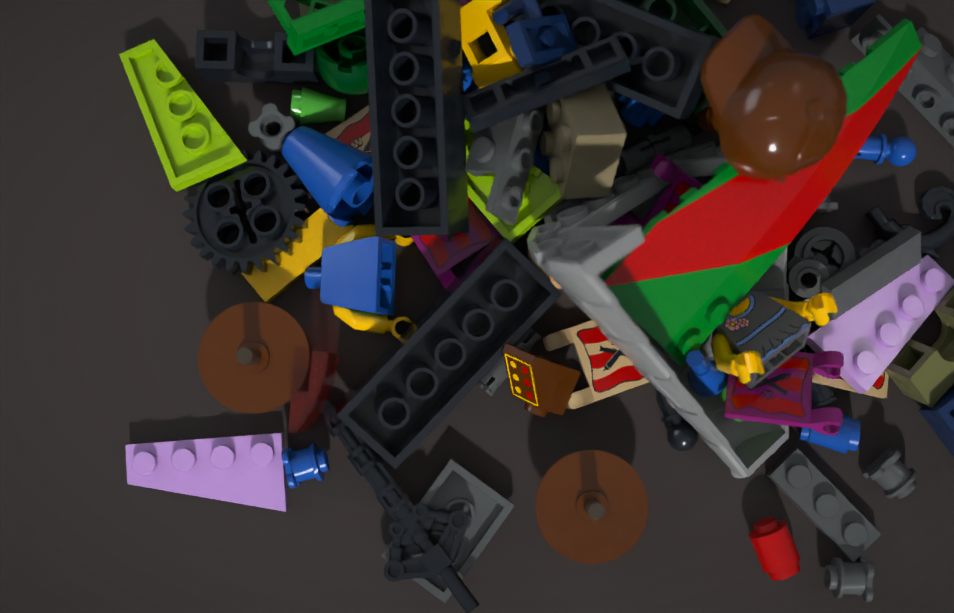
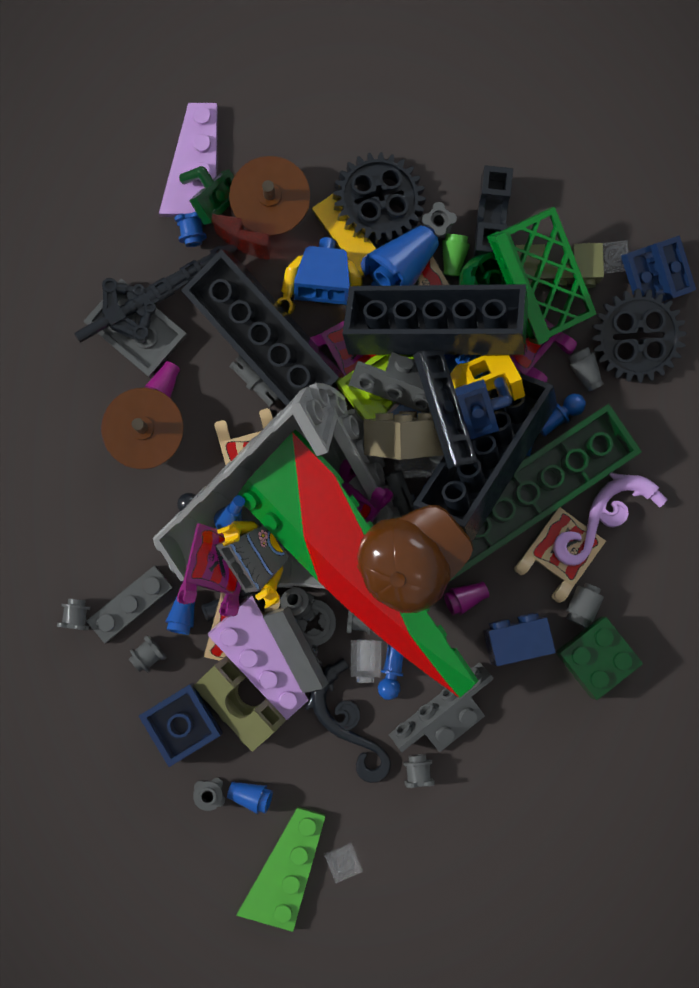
camera: 90 degrees right, 0 degrees up
(180, 124) = (446, 154): lime wing -> none
(257, 433) = (215, 194): none -> dark green plate
(517, 484) = (164, 379): none -> magenta cone
(539, 381) = (237, 400): reddish brown slope -> none
(775, 548) = (100, 563): red brick -> none
(875, 179) = (365, 660): none -> clear brick

